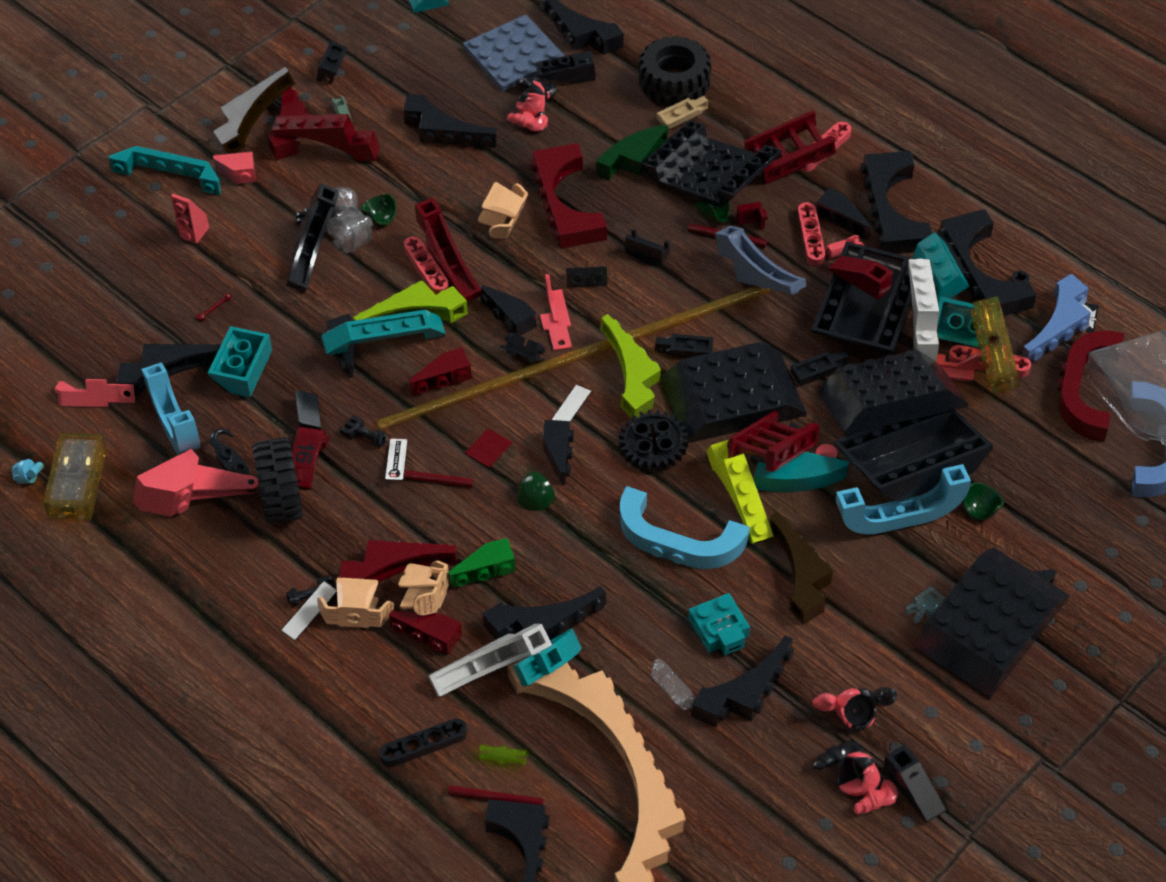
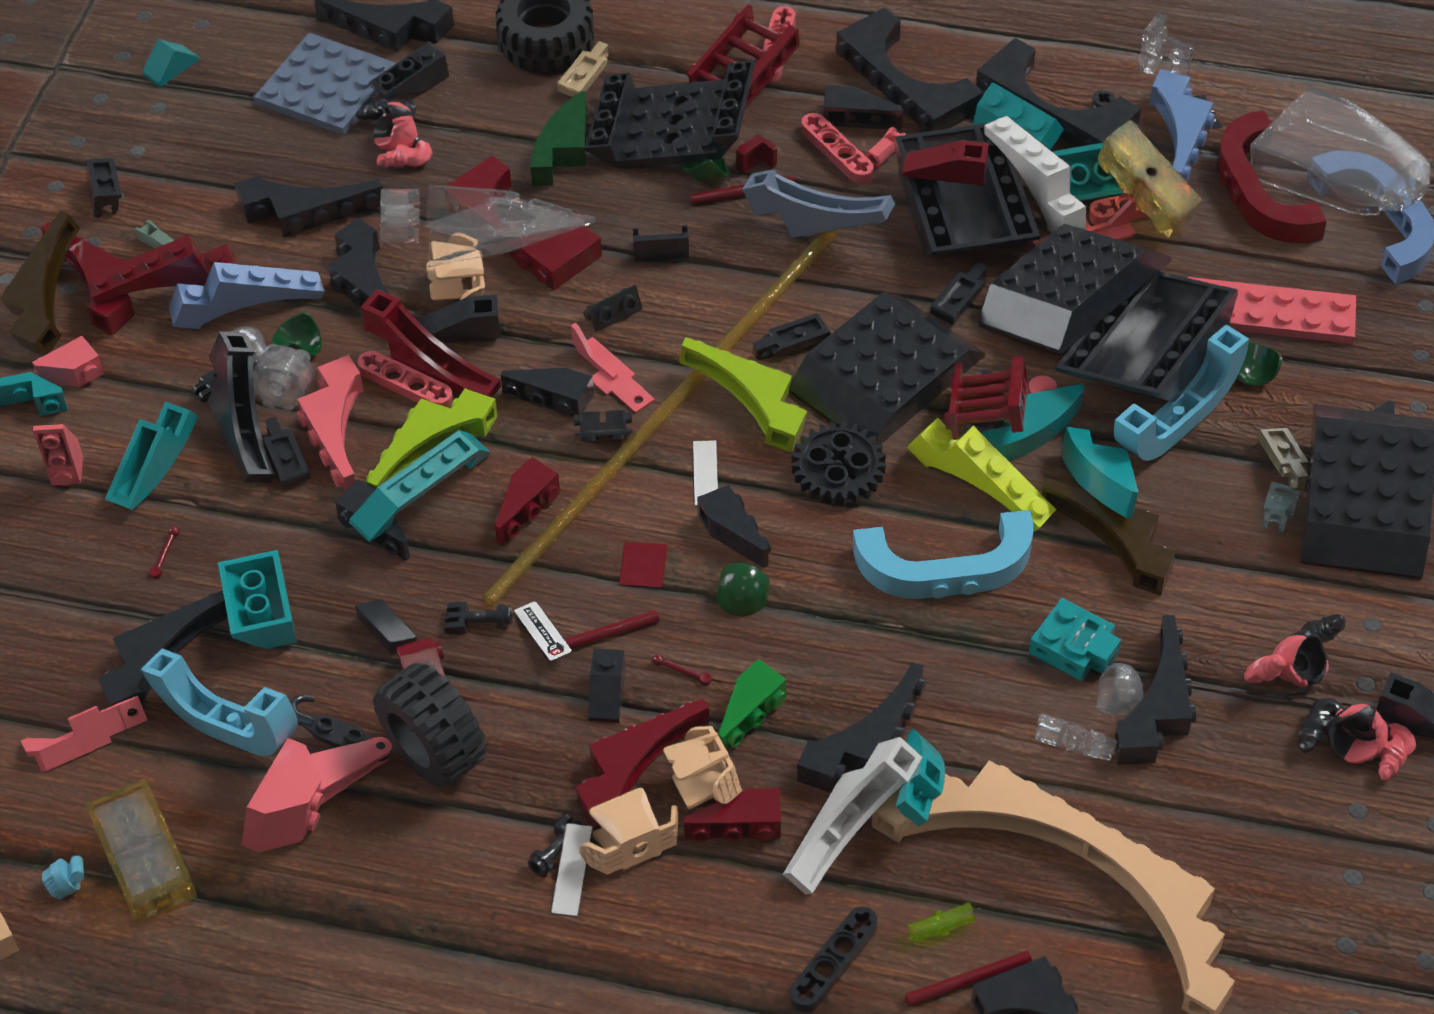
camera: 30 degrees left, 0 degrees up
(243, 243) = (150, 455): none -> teal slope
(321, 279) = (285, 454): none -> black hinge
(363, 265) = (327, 415): none -> coral arch
(366, 162) = (236, 287): none -> medium blue arch
(408, 510) = (606, 685): none -> black slope
(447, 181) = (356, 268): none -> black arch
(473, 536) = (704, 678): none -> dark red hinge
(486, 243) = (465, 320): none -> black slope
(492, 158) = (399, 216): none -> clear brick
(543, 186) = (490, 222): none -> clear windscreen
(721, 669) = (1119, 690): none -> clear hair
(816, 523) = (1101, 470): none -> teal slope
(954, 569) = (1285, 455): none -> dark tan hinge
(1033, 477) = (1292, 312): none -> coral plate
(1080, 262) = (1163, 52): none -> clear bracket

